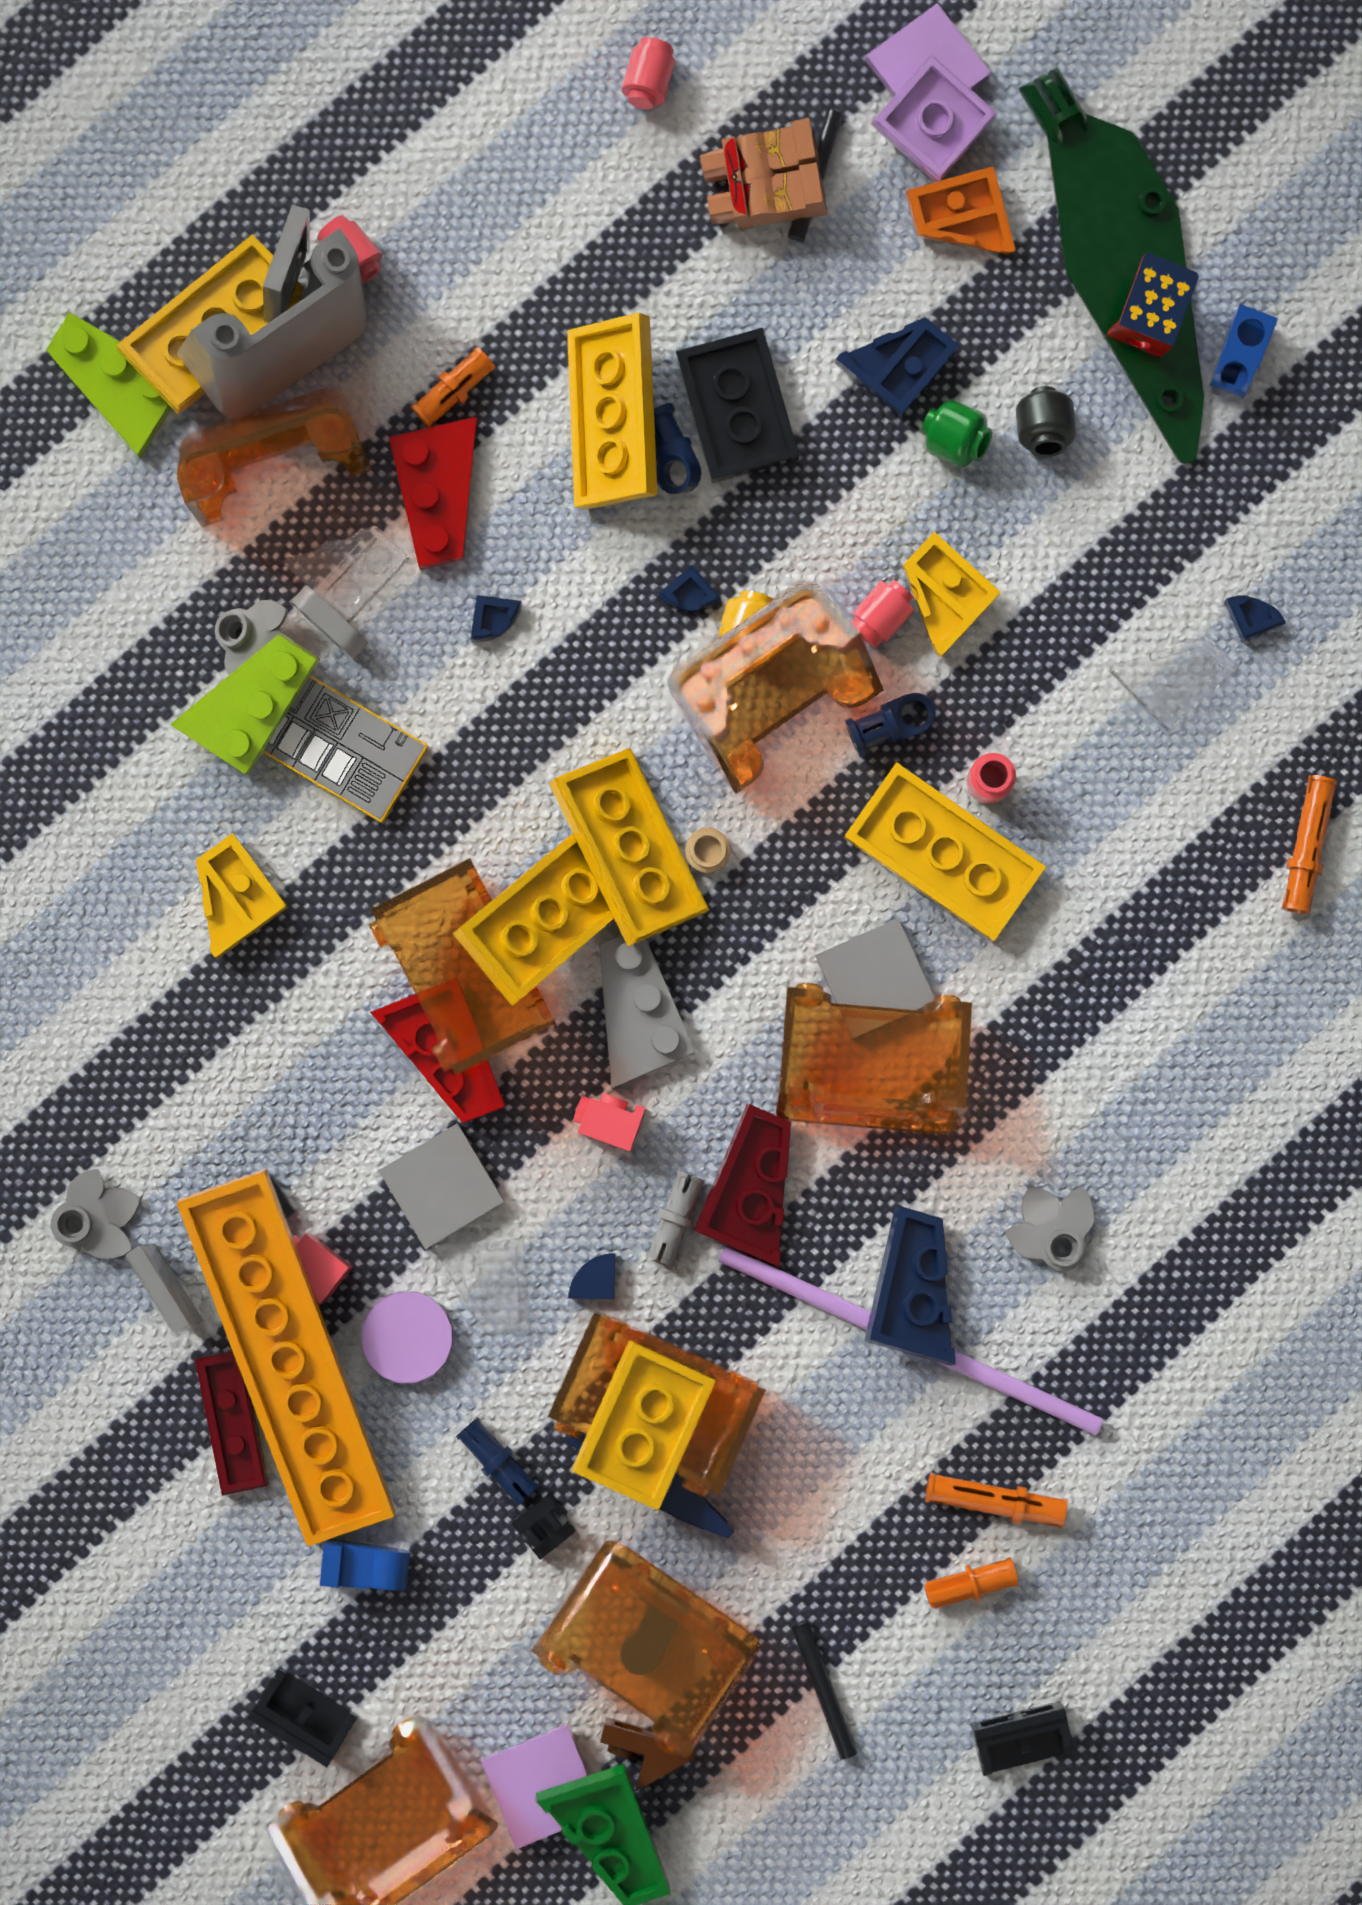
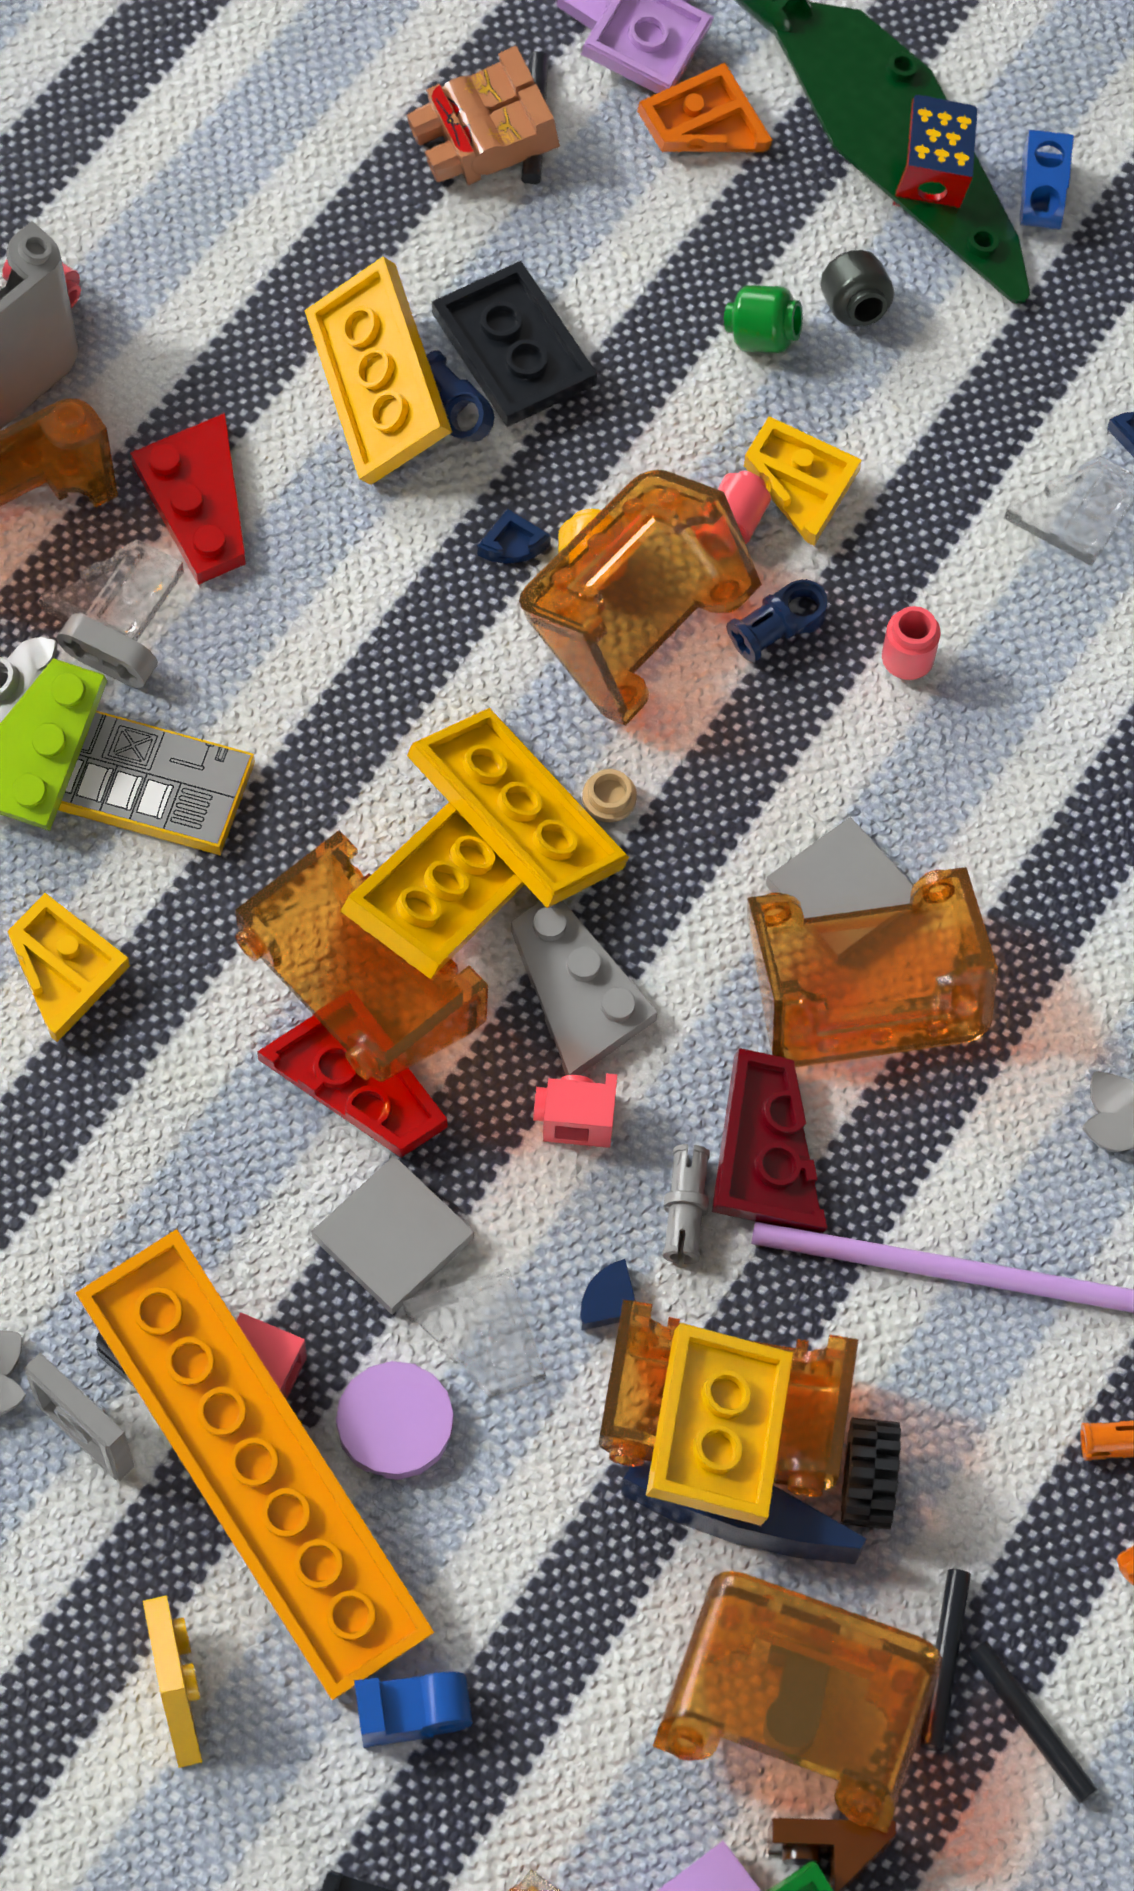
camera: 20 degrees left, 20 degrees down
(191, 1503) = (176, 1681): none -> yellow wing
(231, 1424) = (198, 1577): dark red tile -> none
(453, 387) = (210, 369): orange pin -> none
(493, 617) = (296, 611): dark blue tile -> none
(497, 1461) = (545, 1540): dark blue pin -> none
(544, 1526) = (625, 1607): black tile -> none
(648, 73) = (329, 54): coral brick -> none
(753, 1480) = (871, 1473): none -> black tyre
(775, 1623) = (948, 1644): none -> black bar
(900, 363) = (681, 268): dark blue wing -> none
(911, 1293) = (992, 1216): dark blue wing -> none
(944, 852) = (881, 736): yellow plate -> none

